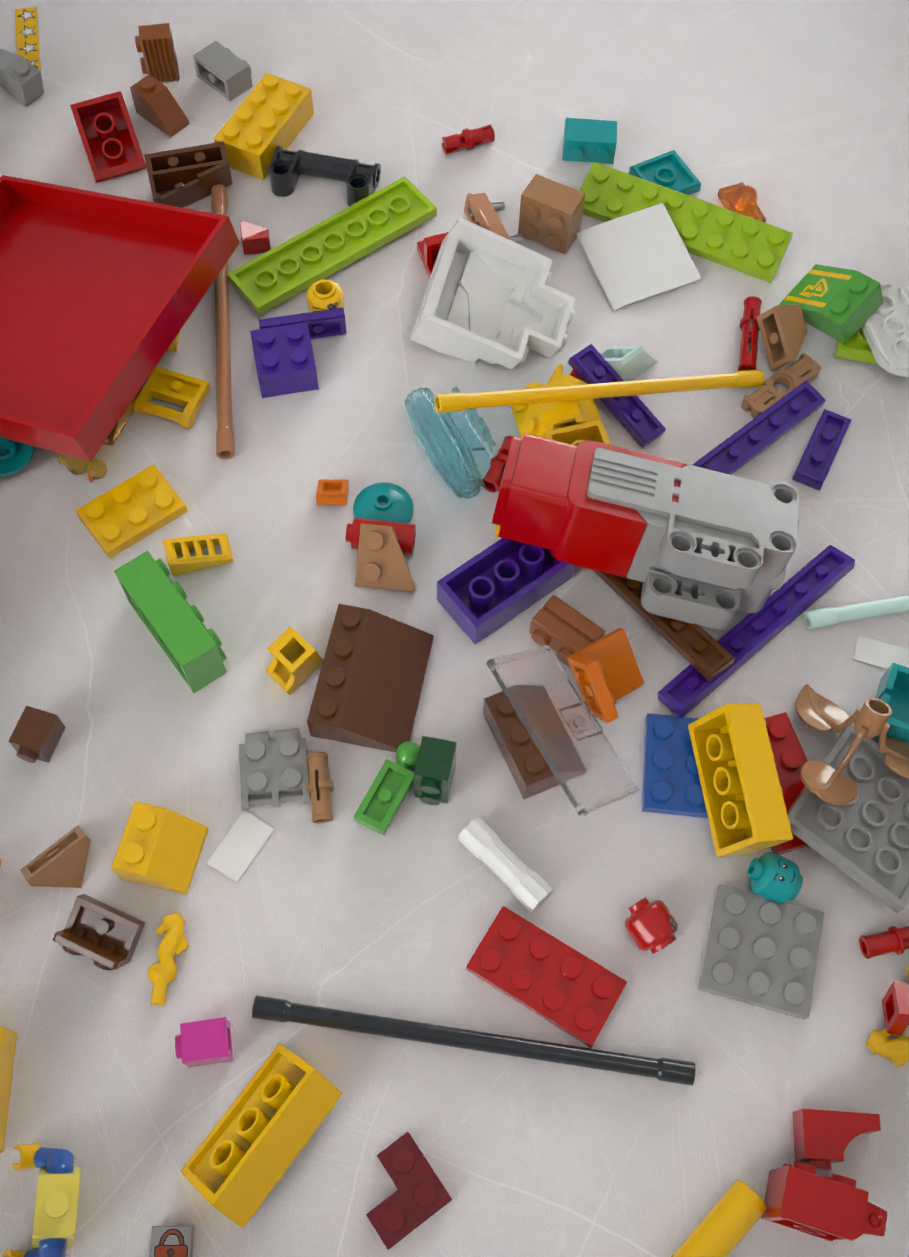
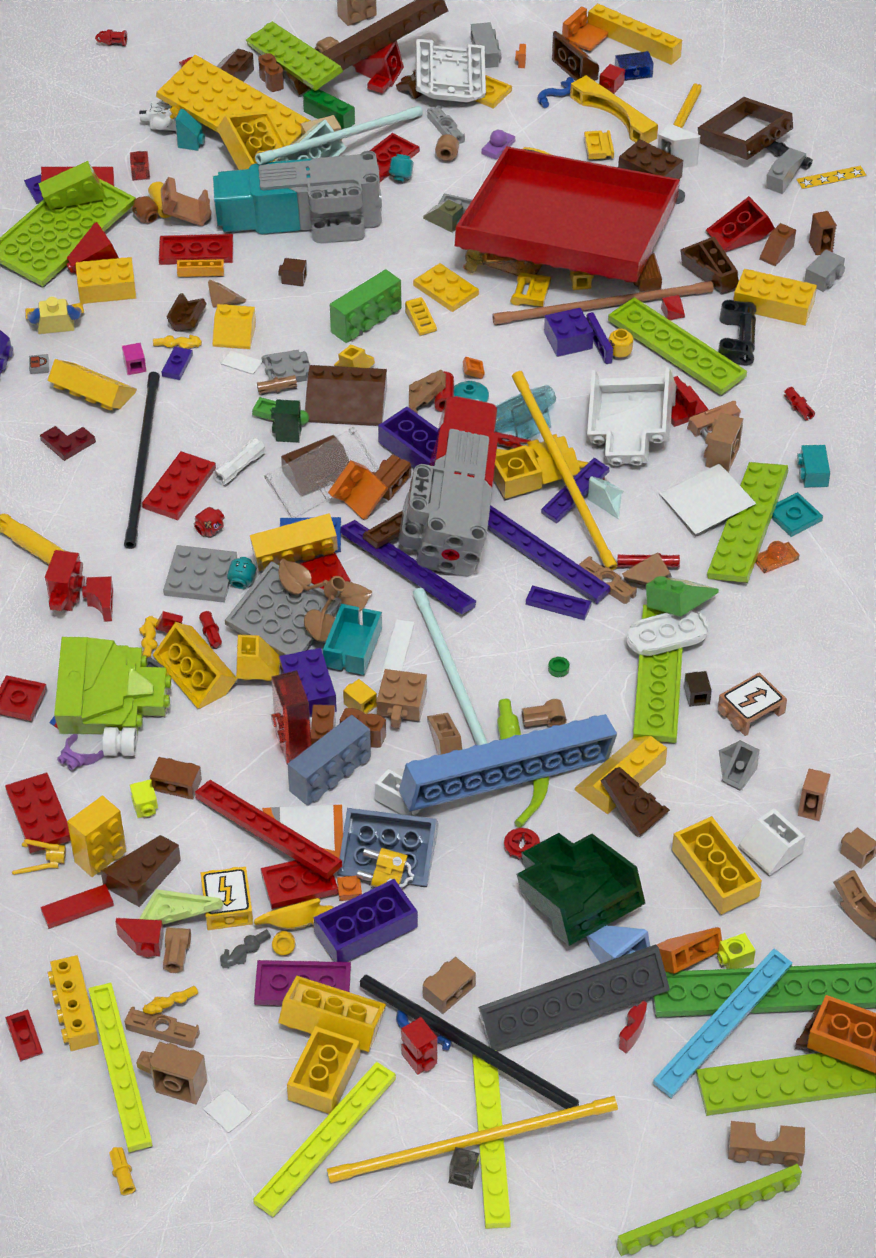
camera: 85 degrees right, 15 degrees down
(225, 961) = (177, 363): none -> dark purple plate

